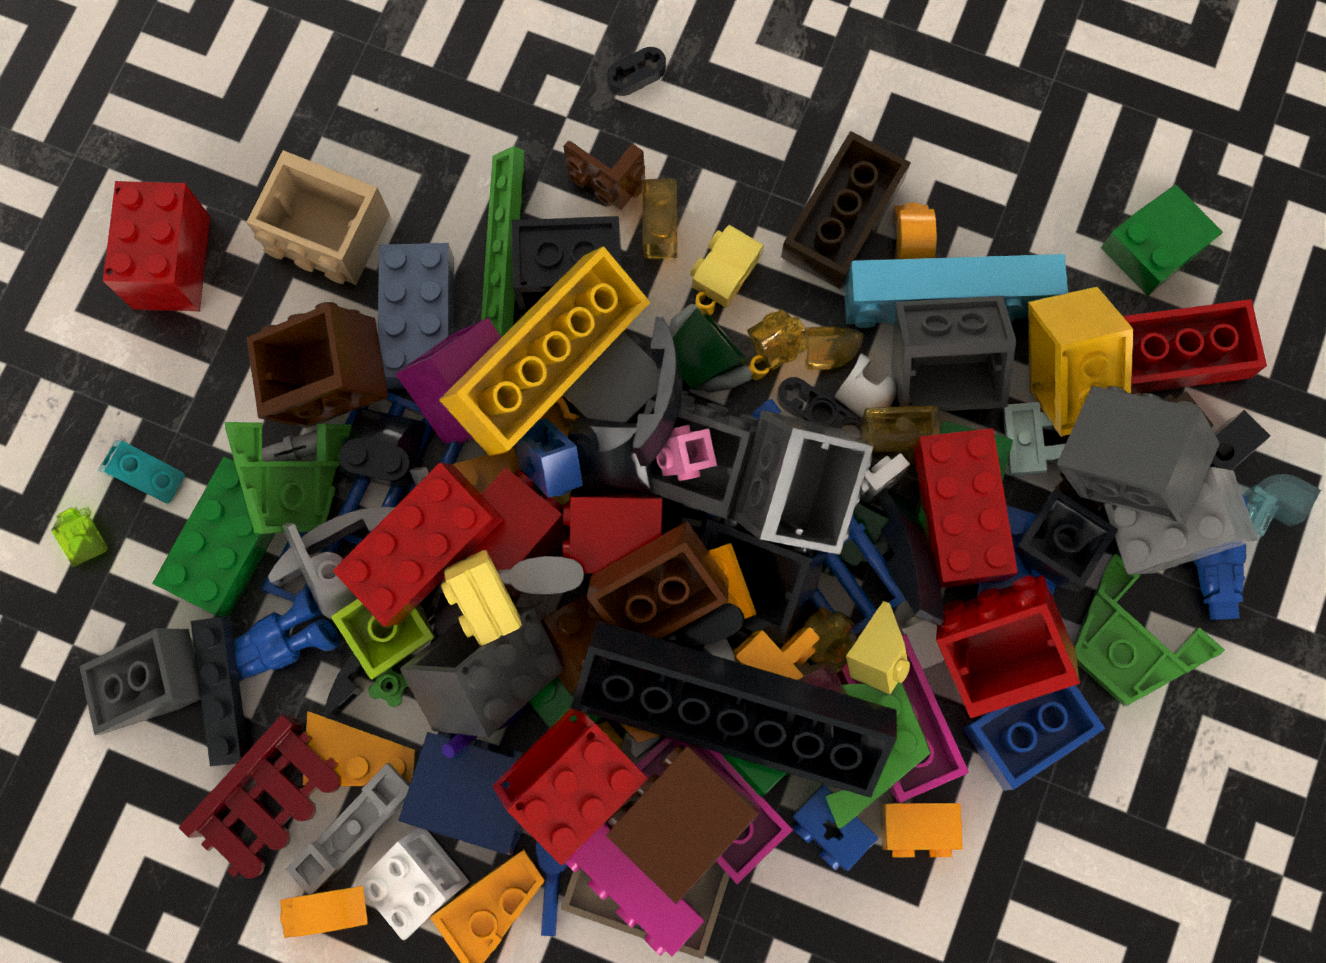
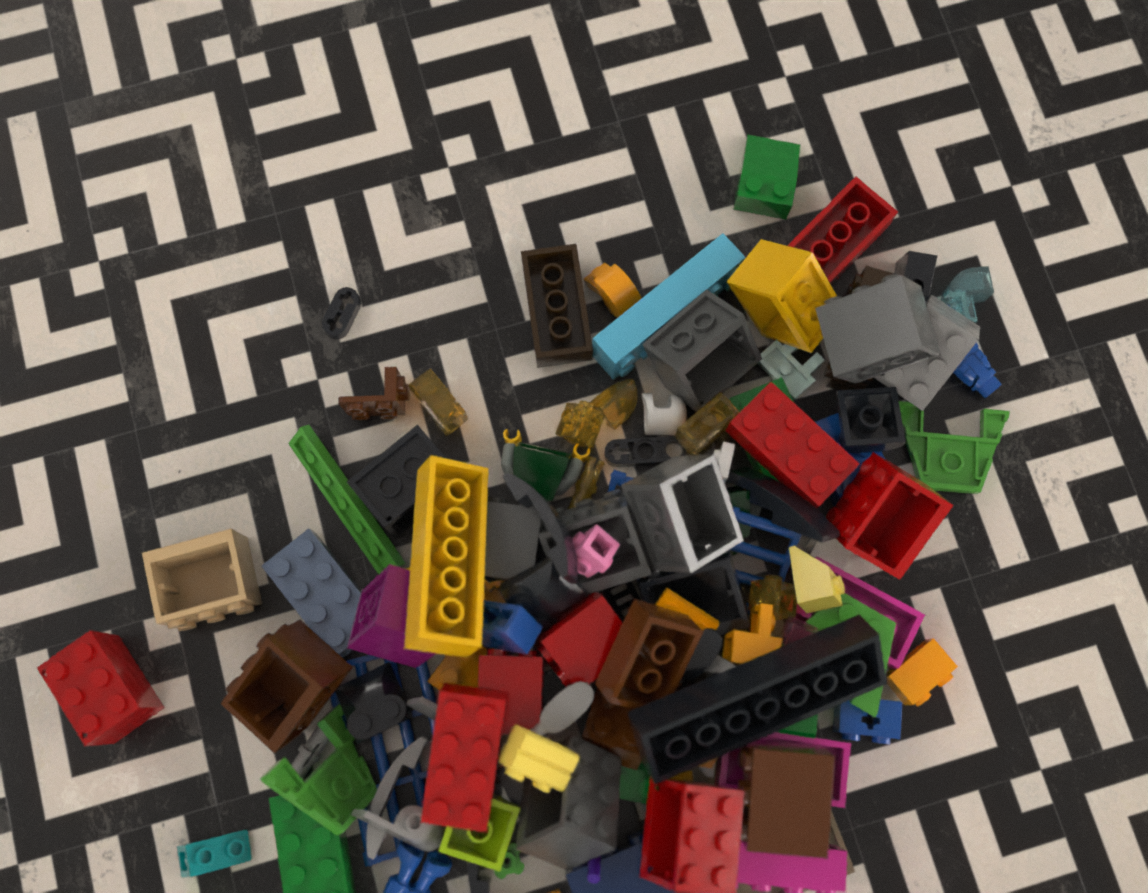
camera: 40 degrees left, 0 degrees up
(727, 265) = (506, 399): light yellow brick -> none
(741, 400) = (586, 484): none -> clear yellow pin
(1032, 734) = (944, 561): blue brick -> none

